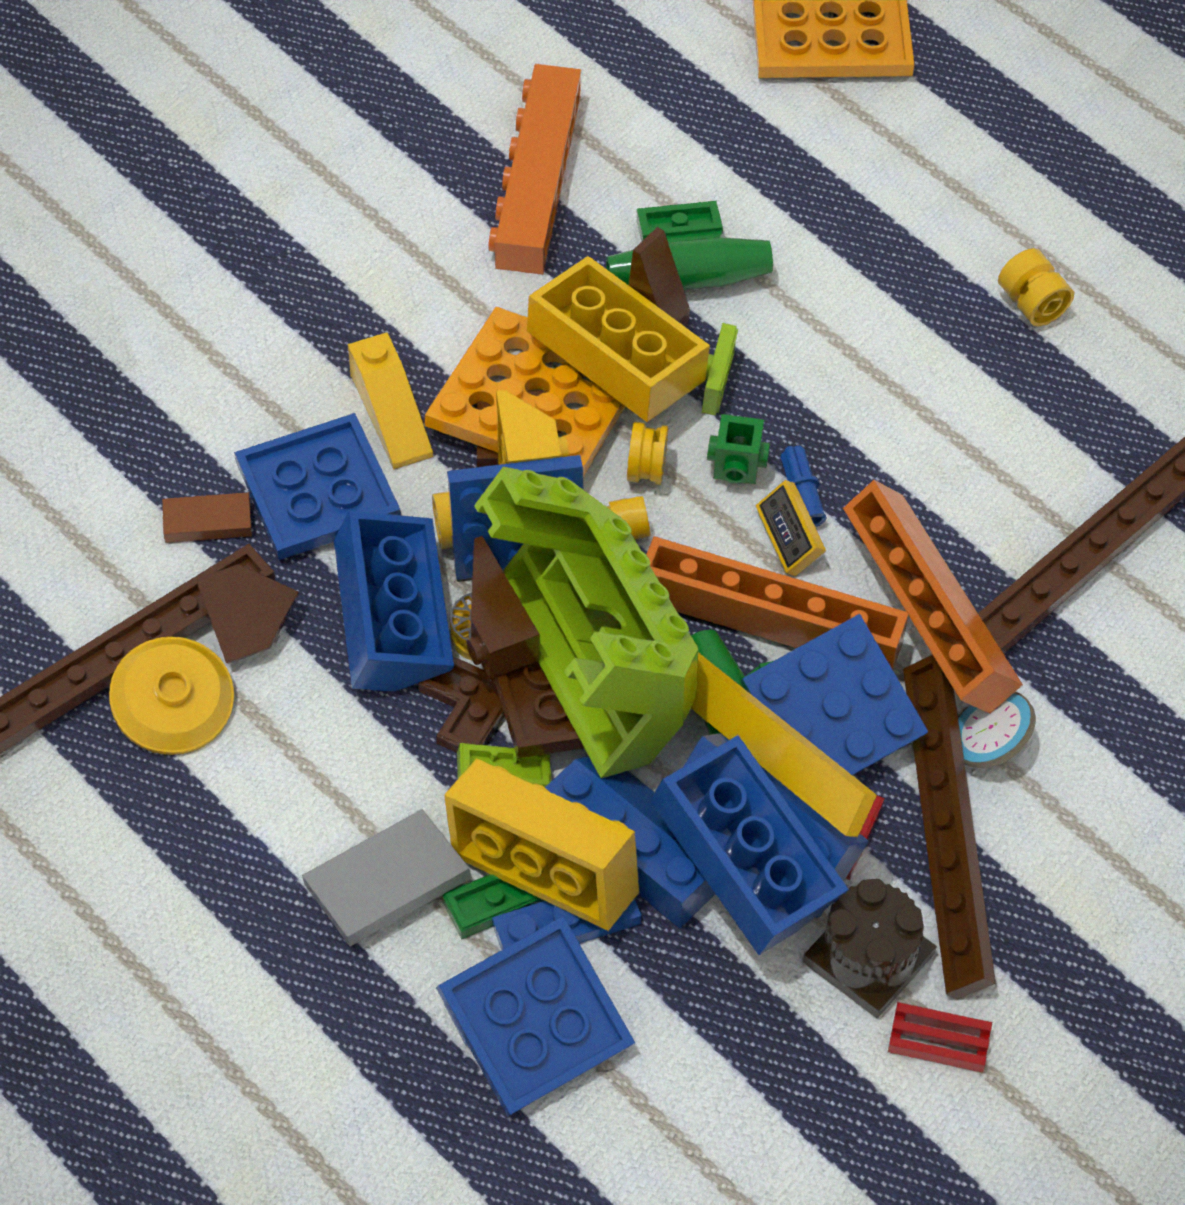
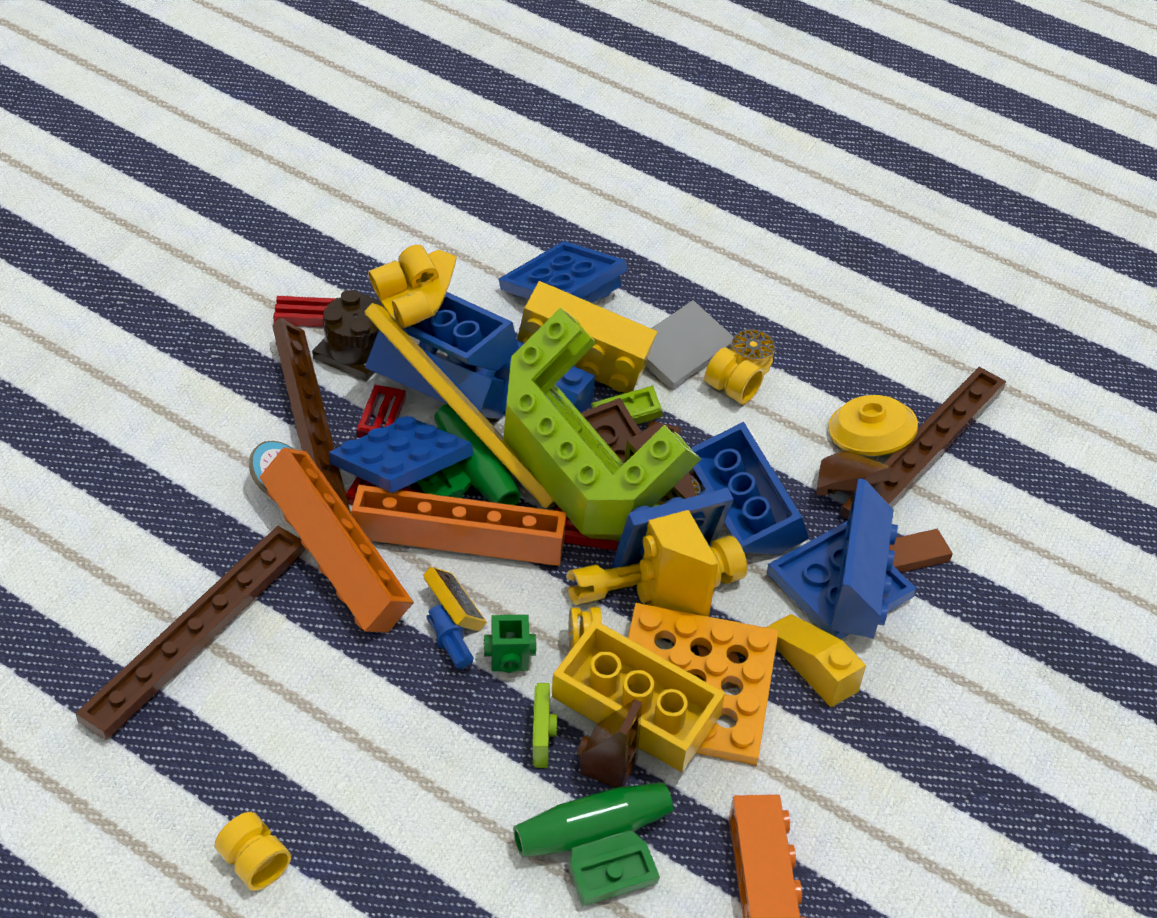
camera: 165 degrees right, 10 degrees down
(289, 845) = (756, 351): none -> yellow wheel
(297, 455) = (864, 564): none -> blue slope
(335, 793) = (731, 373): none -> yellow wheel
(790, 883) = (414, 284): none -> yellow panel

